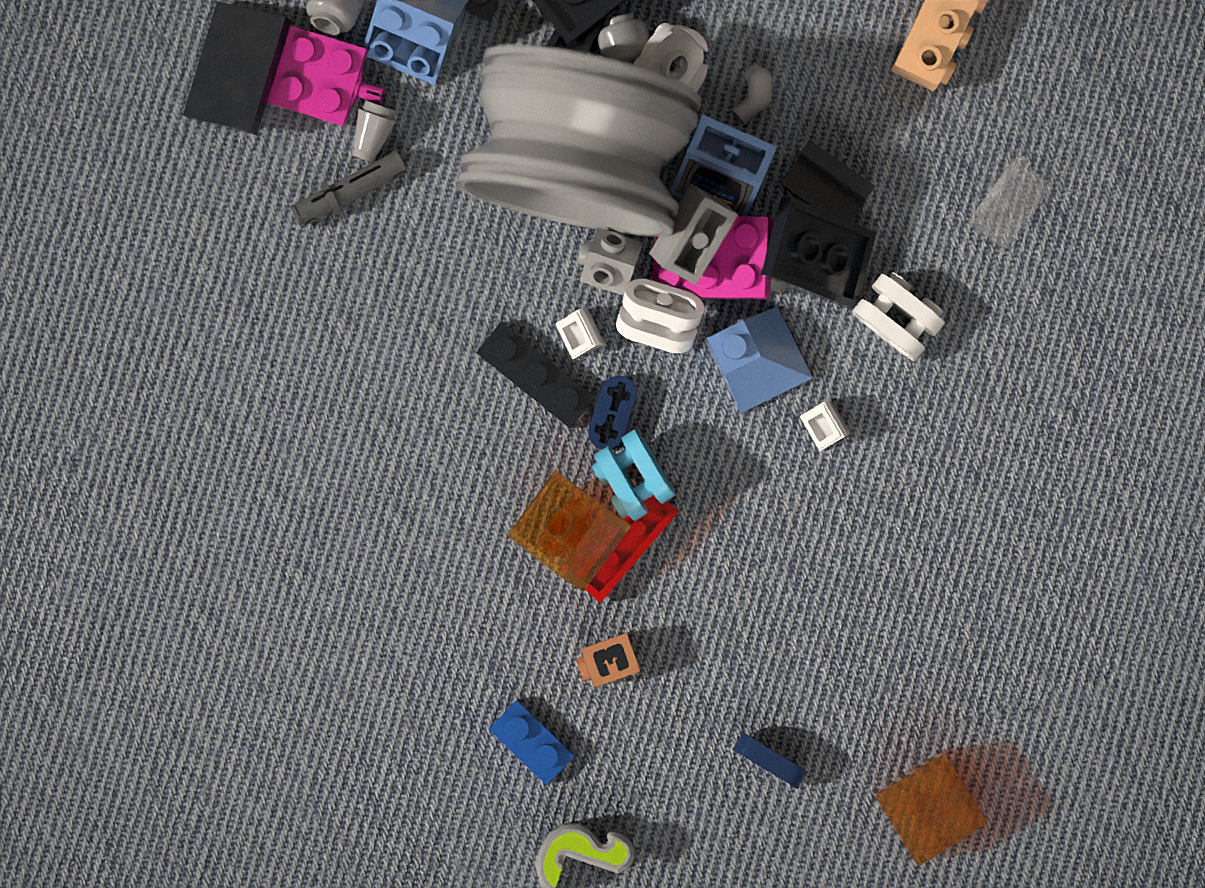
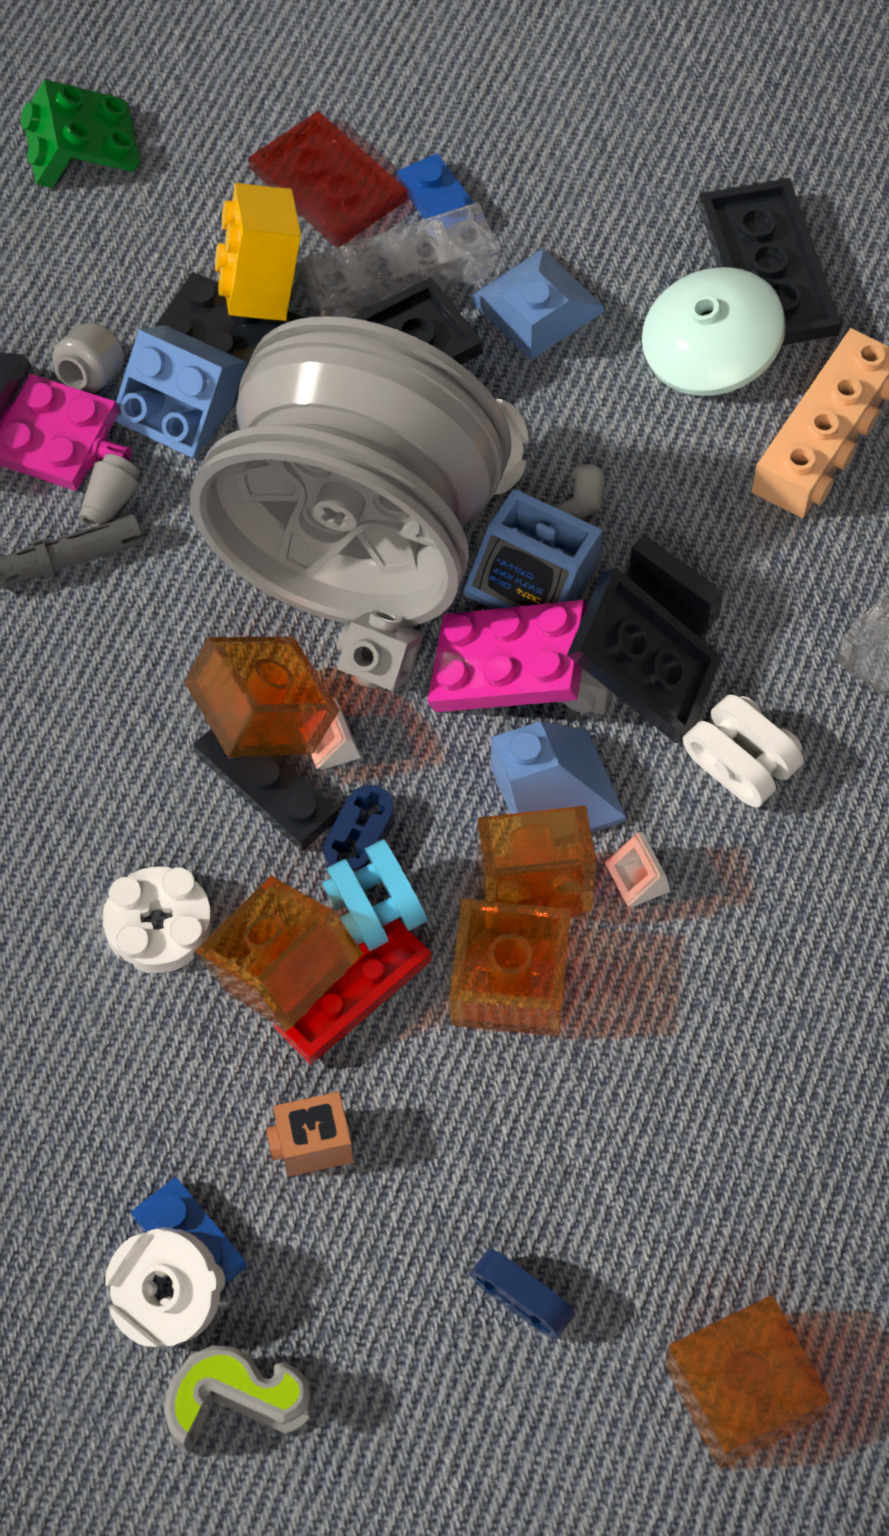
camera: 10 degrees right, 25 degrees down
(450, 487) = (150, 890): none -> white plate
(526, 319) = (261, 696): none -> clear orange brick
(534, 768) = (195, 1284): none -> white plate
(659, 315) = (411, 729): white brick -> none
(696, 236) = (486, 604): light grey brick -> none
(739, 520) = (509, 967): none -> clear orange brick
(750, 440) = (537, 858): none -> clear orange brick

